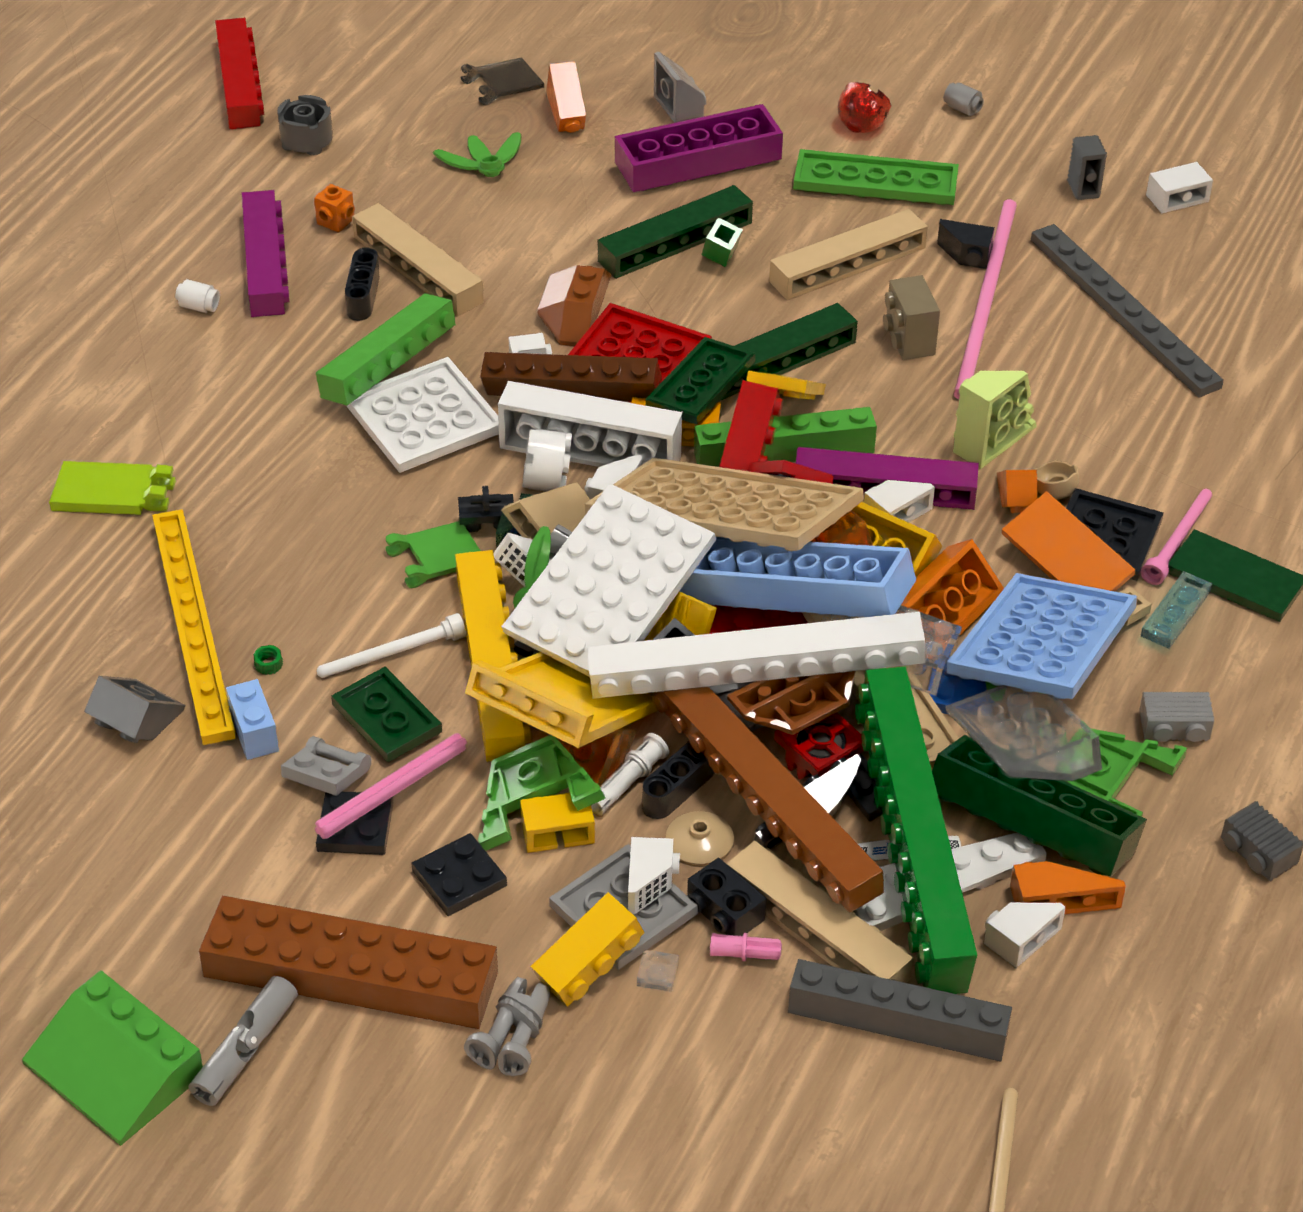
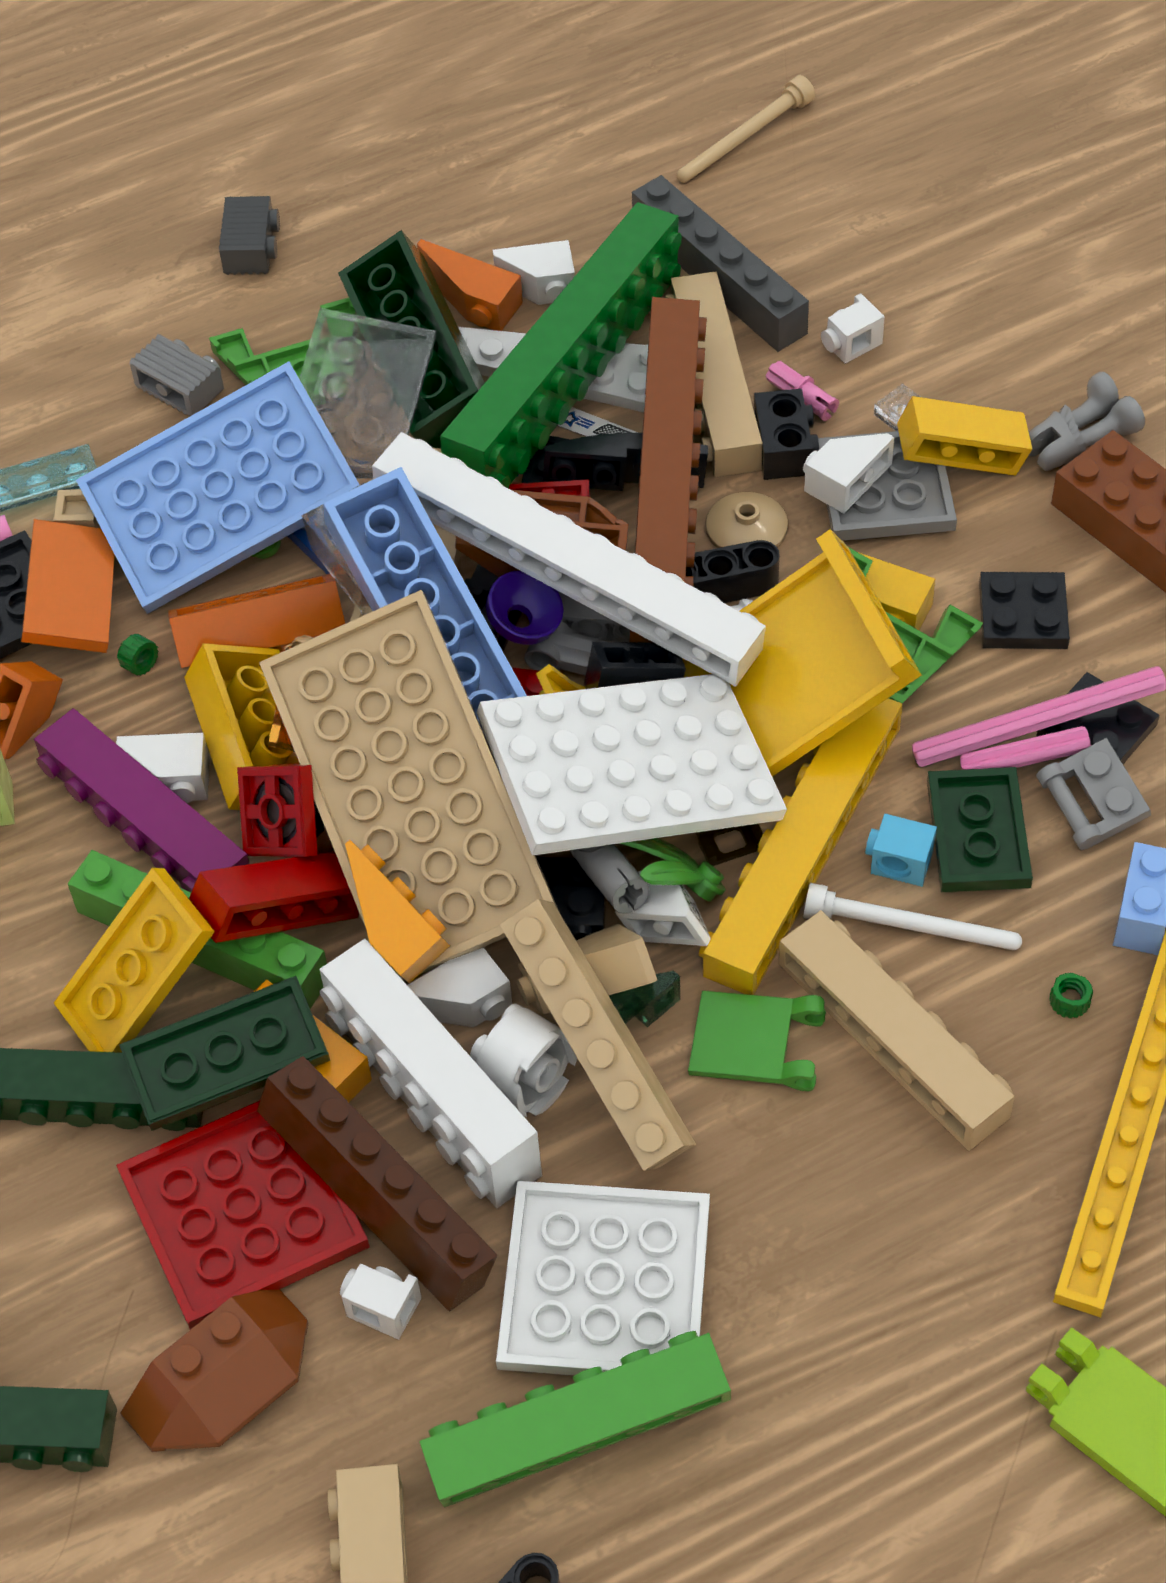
camera: 140 degrees left, 10 degrees up
(358, 584) = (897, 1030): none -> tan brick
(379, 770) = (1029, 750): none -> bright pink axle
(425, 674) = (901, 849): none -> medium azure brick
(482, 509) = (662, 1040): black hips -> none
(511, 466) = (597, 1035): none -> tan brick
(673, 455) = (391, 921): none -> light orange slope
(747, 1014) = (854, 330): none -> white brick
(988, 546) = (137, 654): none -> green axle

